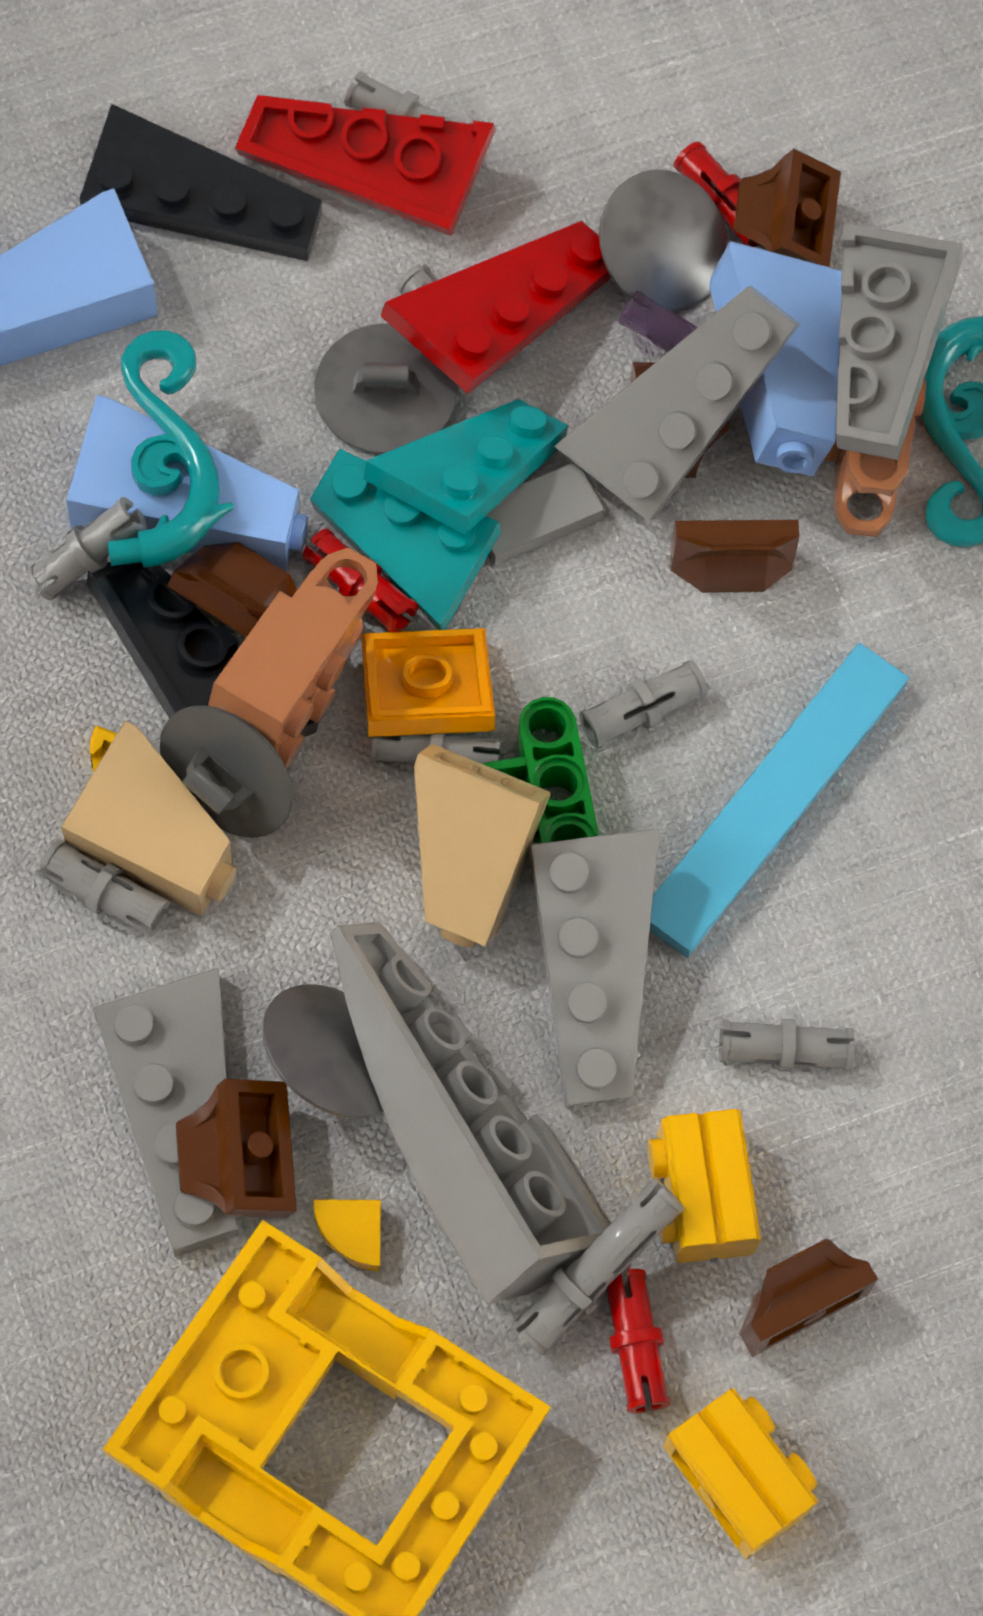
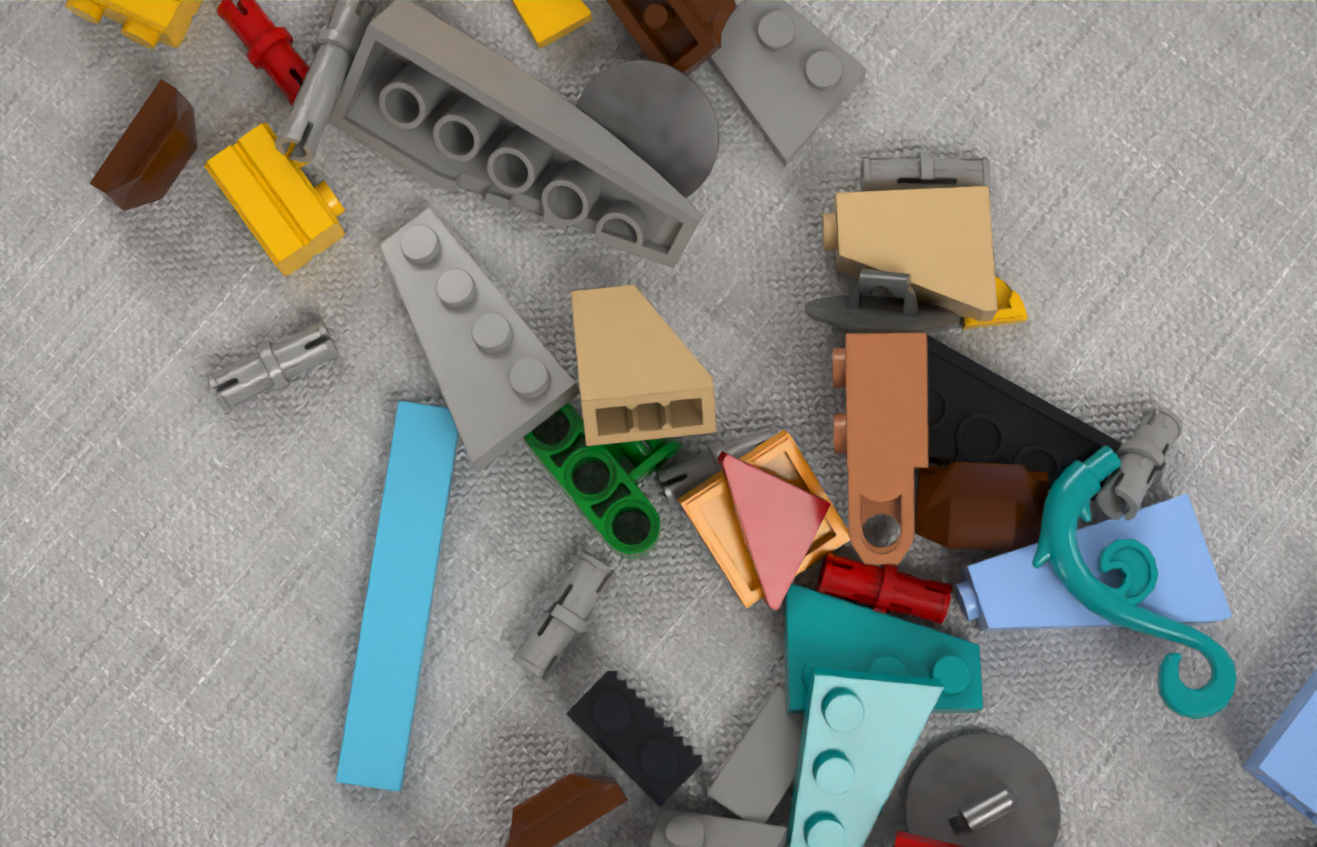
camera: 155 degrees right, 15 degrees up
(424, 662) = (774, 521): none -> tile
(638, 574) = (635, 737): none -> black brick

